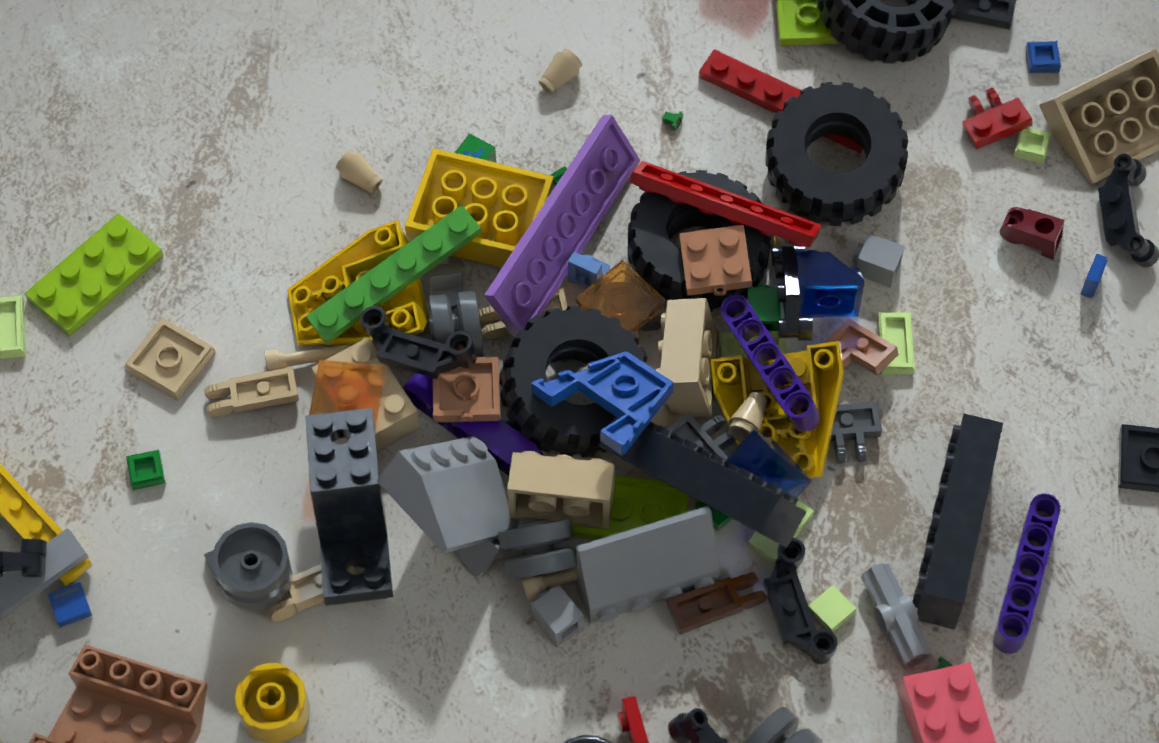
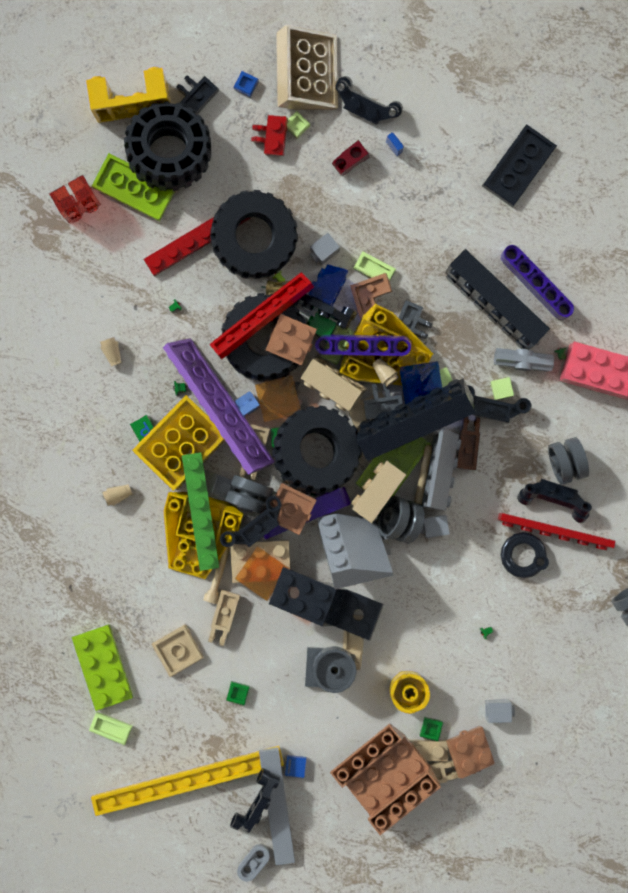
camera: 60 degrees left, 25 degrees up
(618, 385) = (347, 432): blue wing -> none

